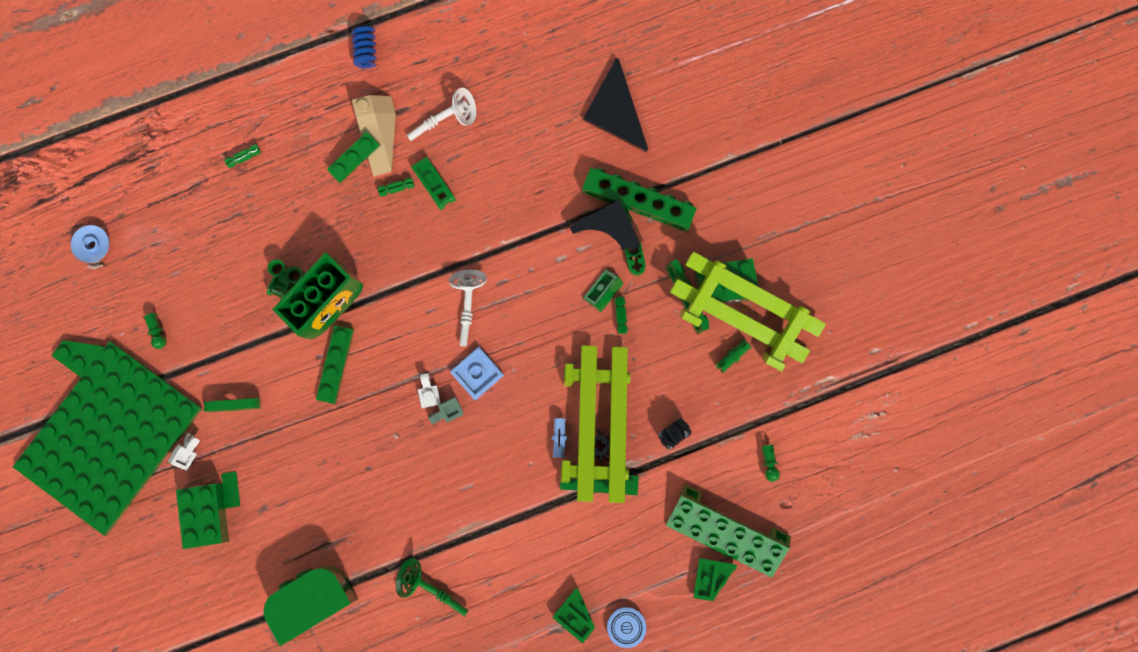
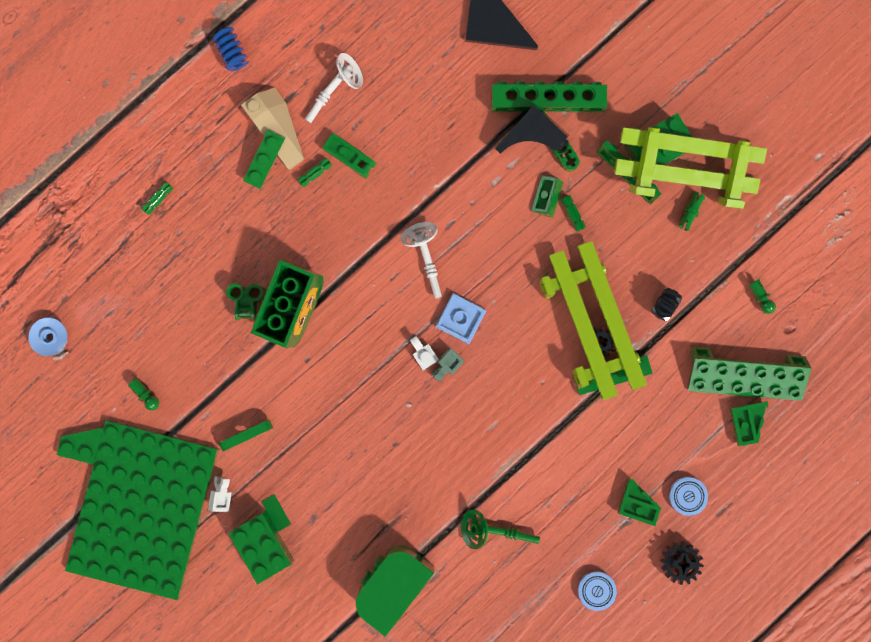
camera: 25 degrees left, 5 degrees up
(335, 365) = (325, 361): green plate -> none
(558, 452) = (557, 336): light blue pin -> none

